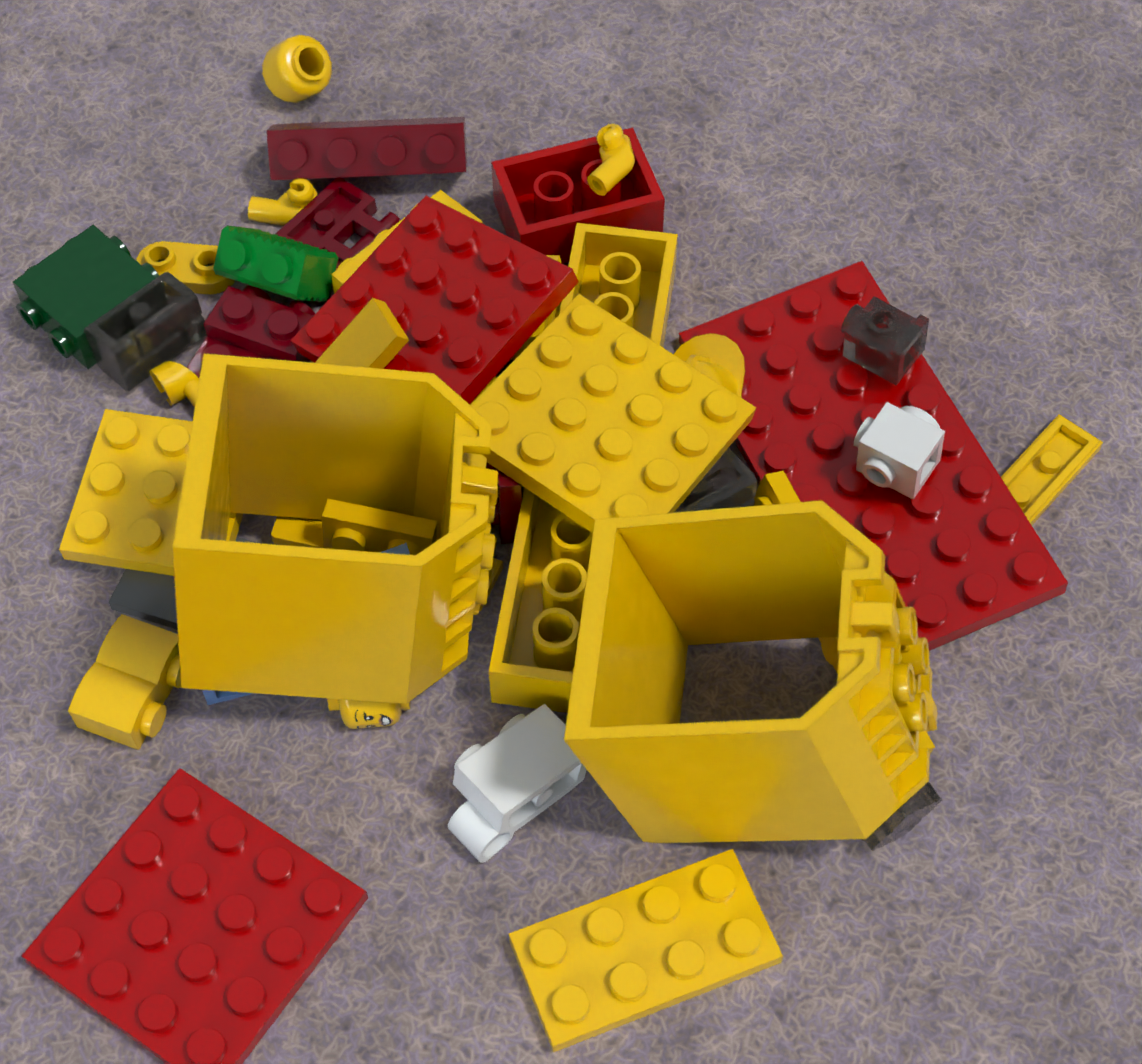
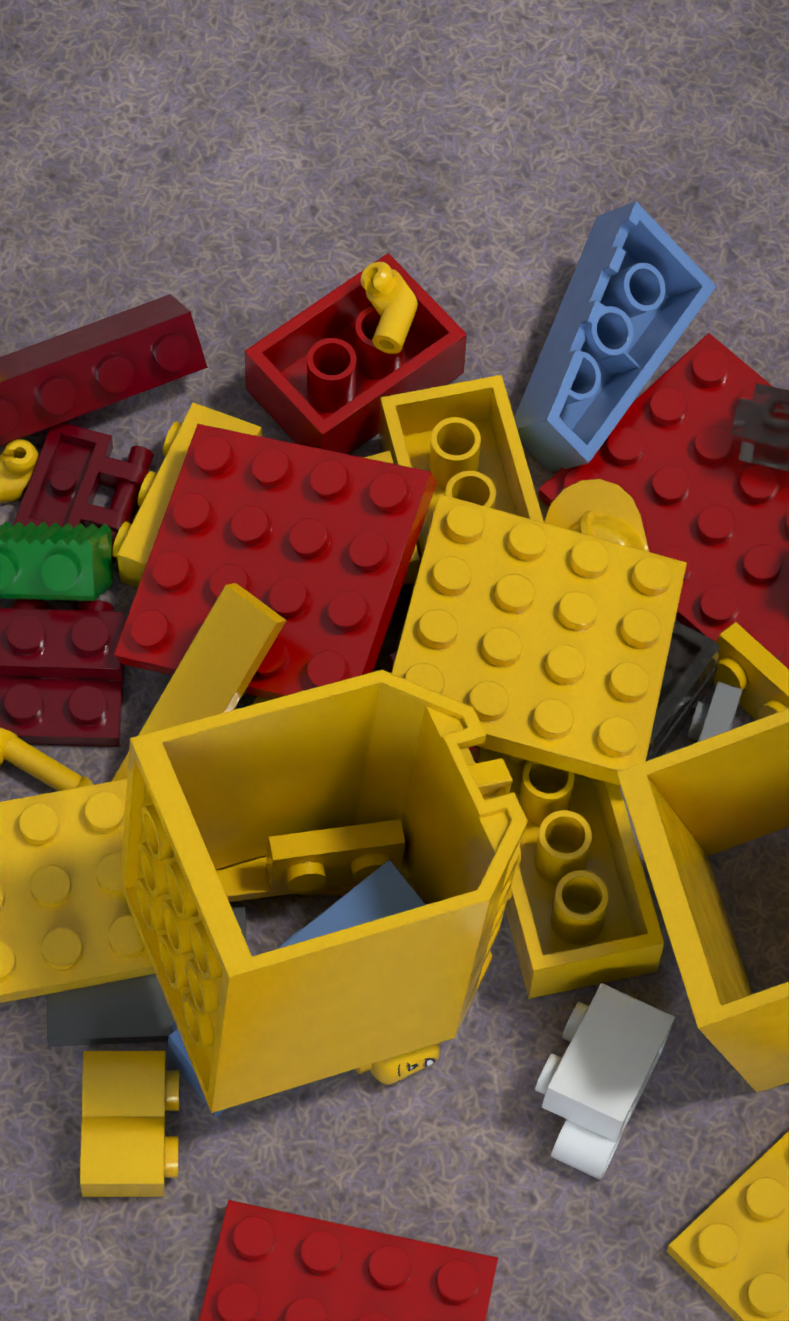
camera: 25 degrees left, 5 degrees up
(786, 231) = (609, 336): none -> medium blue wedge

